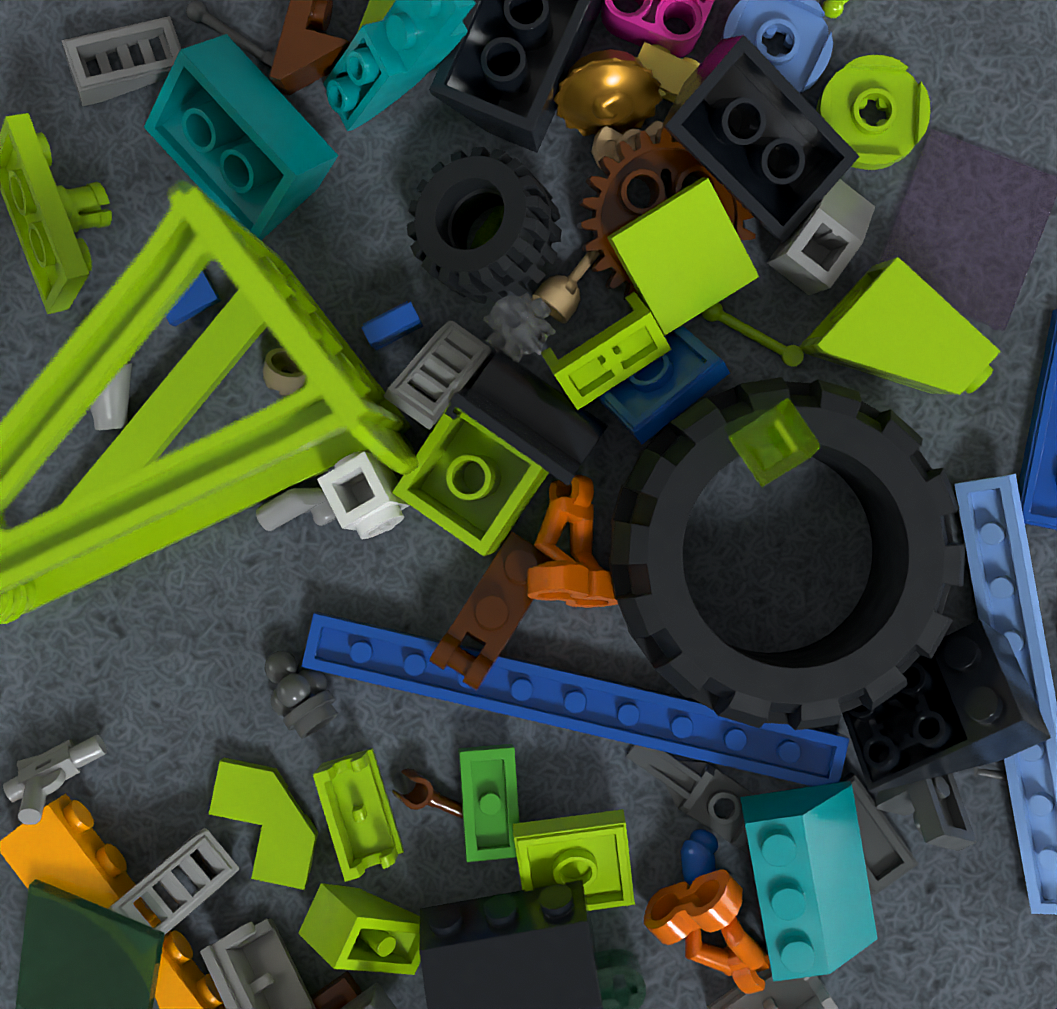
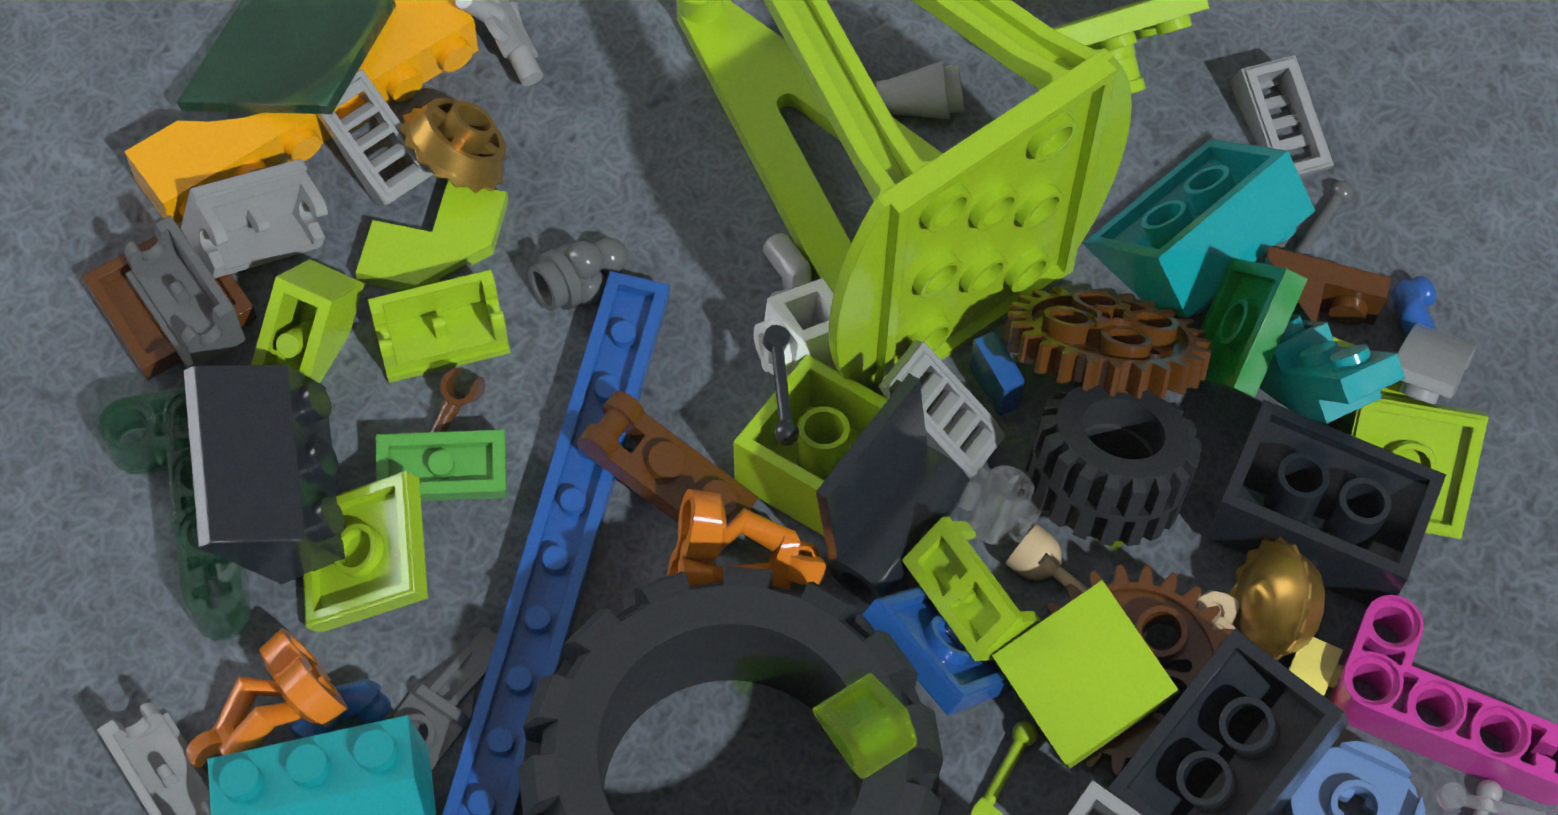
camera: 90 degrees right, 25 degrees down
(178, 812) = (457, 143): none -> pearl gold piece
(358, 101) = (1248, 322): none -> green tile
(375, 225) = (1107, 342): none -> reddish brown gear
(385, 520) = (776, 341): none -> black hinge

